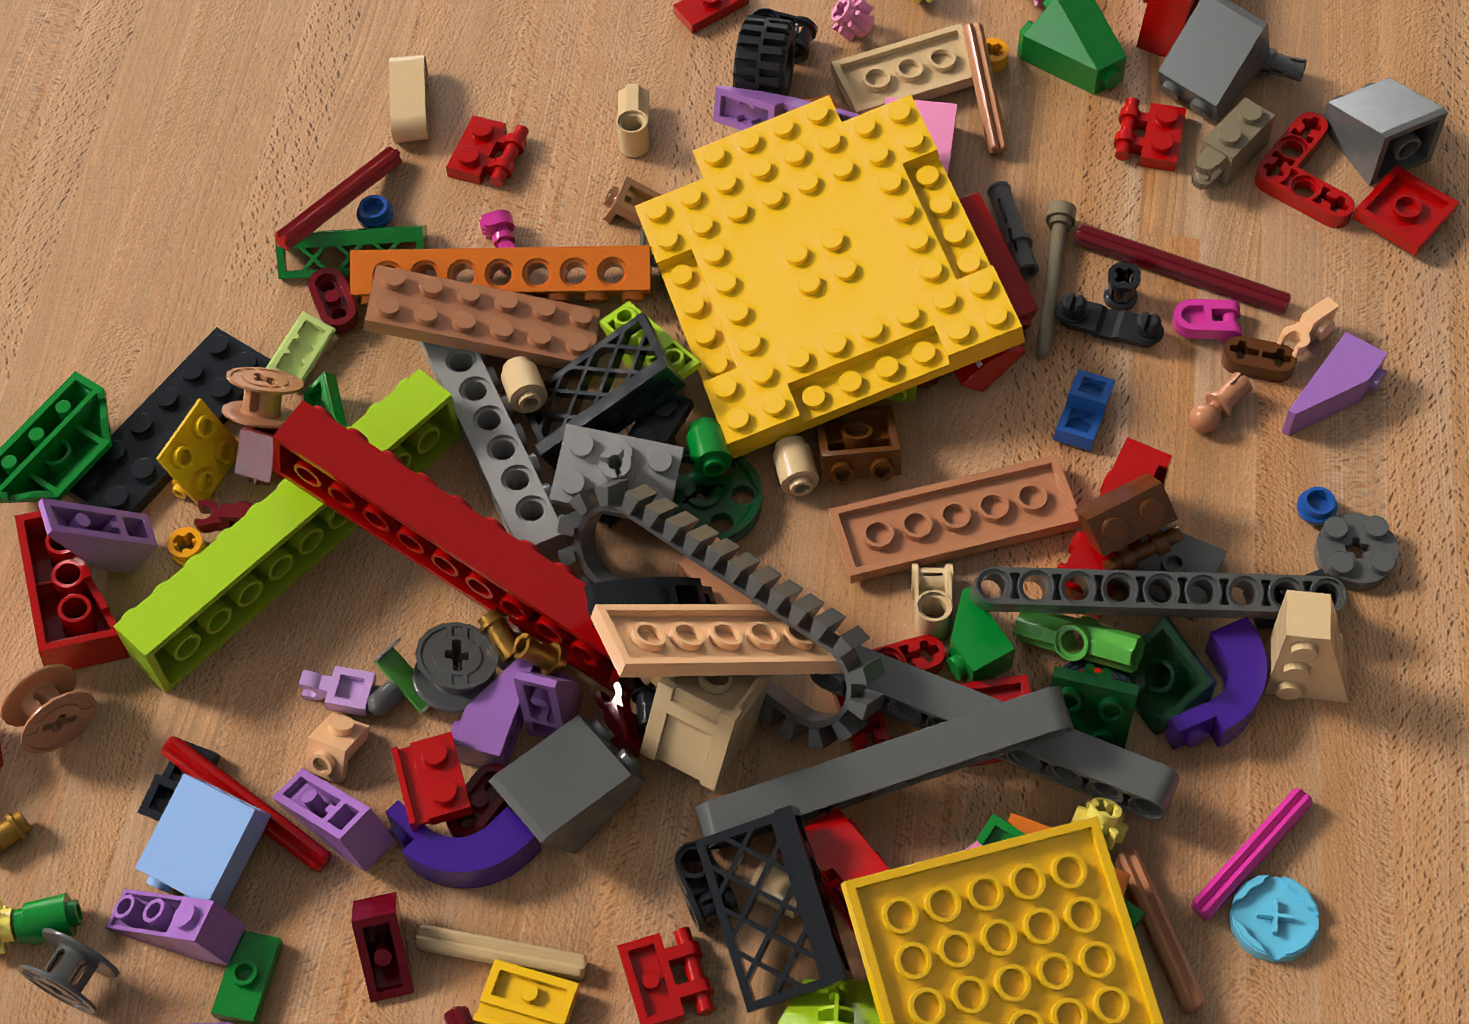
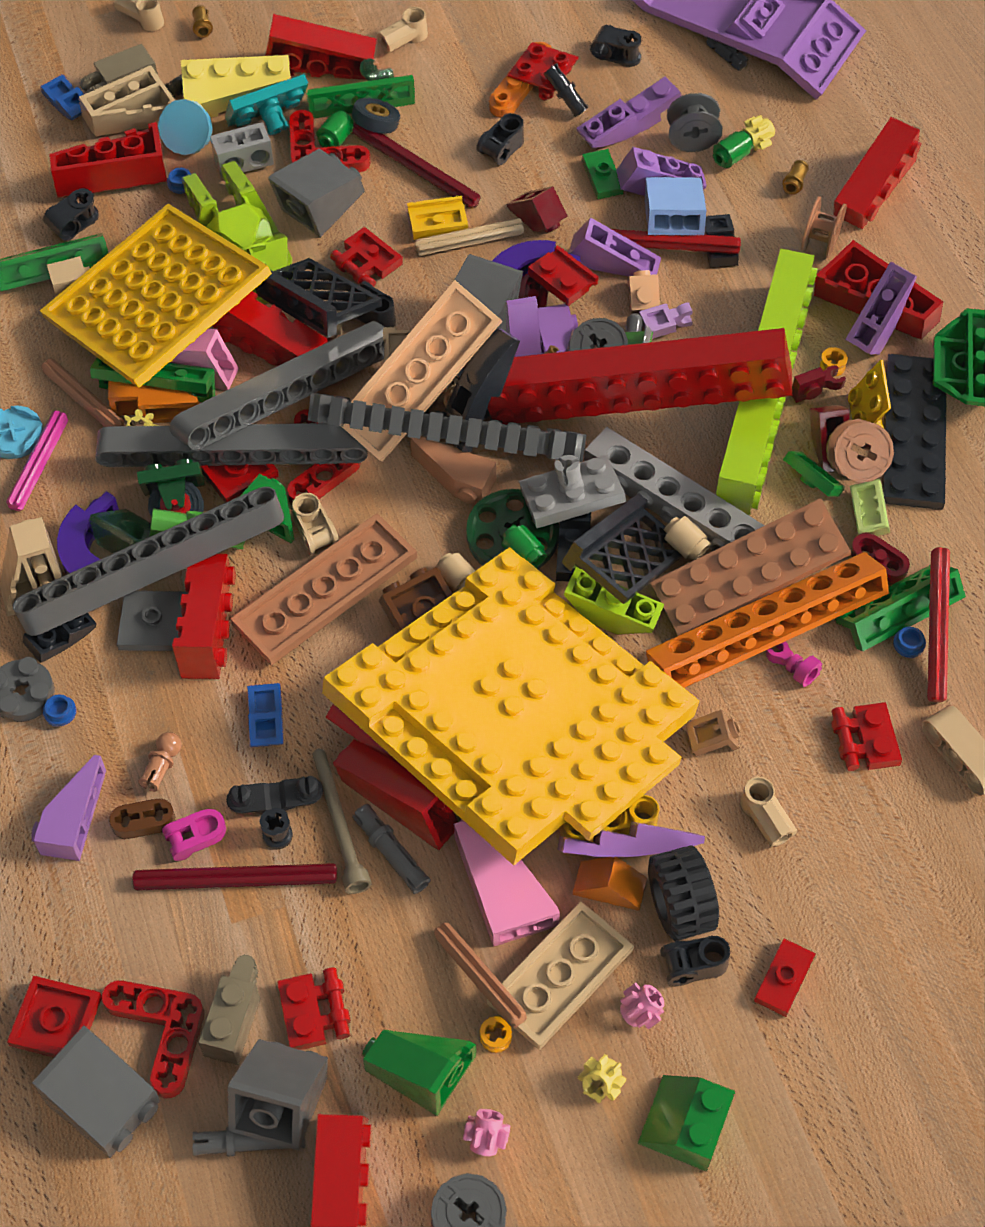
camera: 150 degrees right, 0 degrees up
(1126, 516) = (186, 580): reddish brown brick -> none
(1313, 325) = (104, 858): light nougat plate -> none

